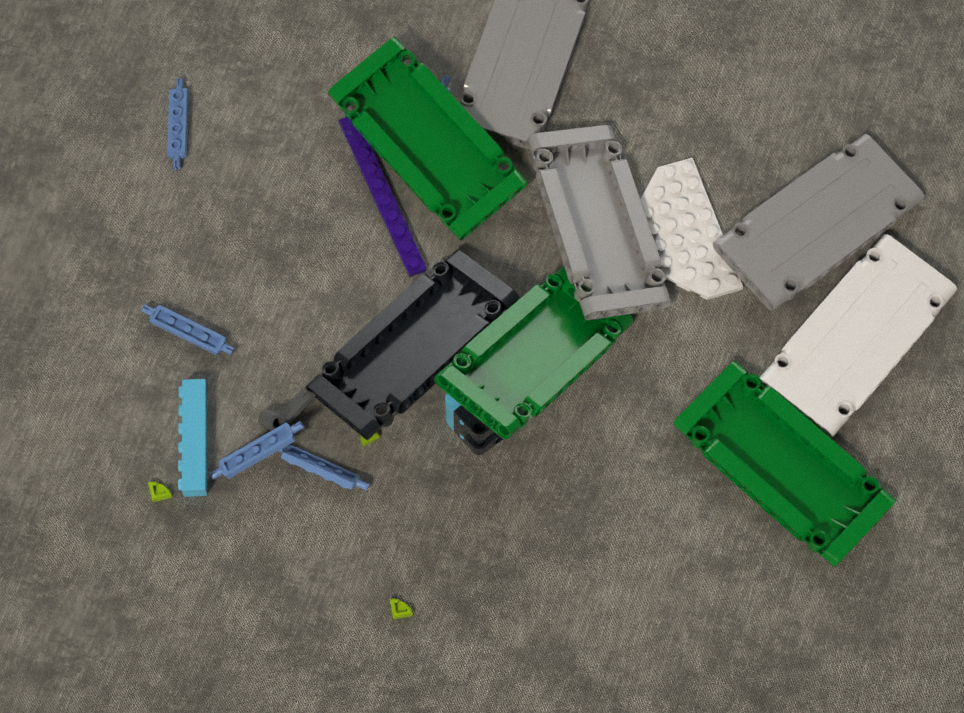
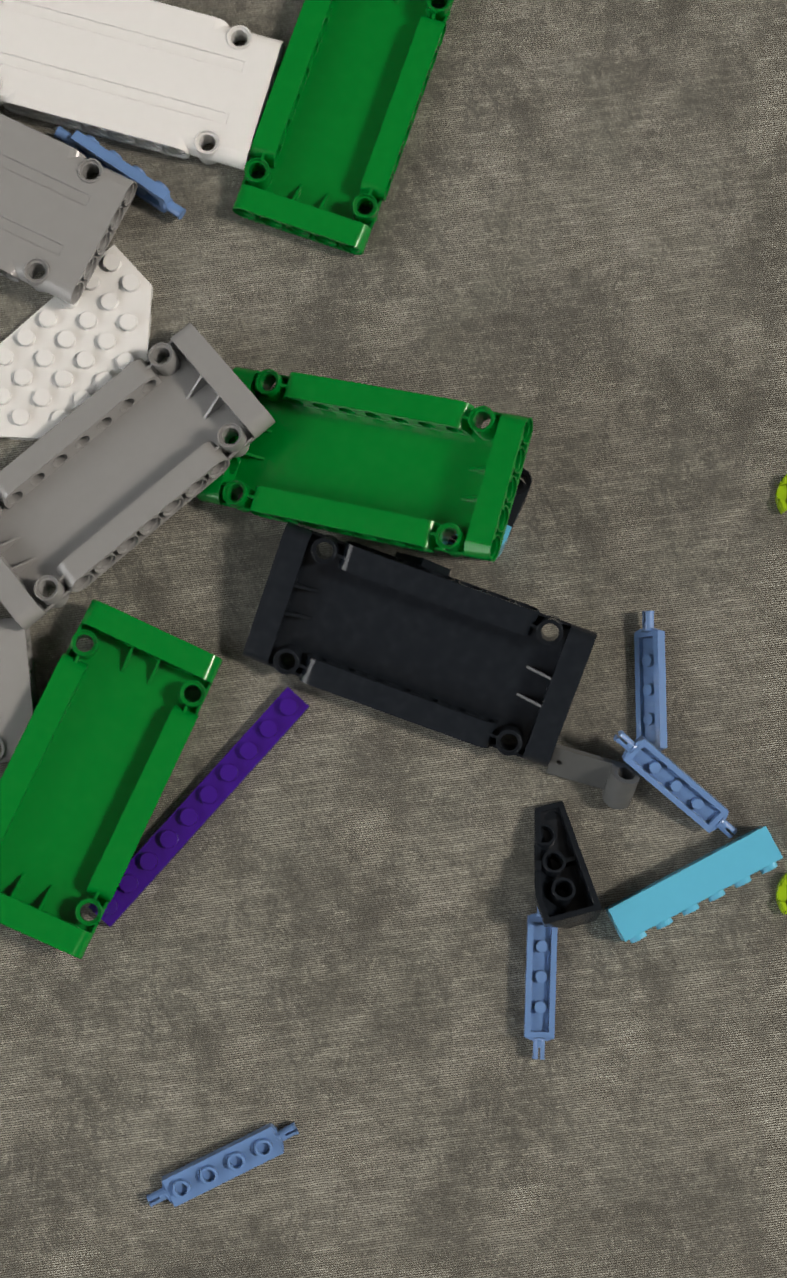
camera: 110 degrees left, 15 degrees up
(236, 363) = (561, 876): none -> black wedge
(781, 313) = (149, 190): none -> medium blue plate

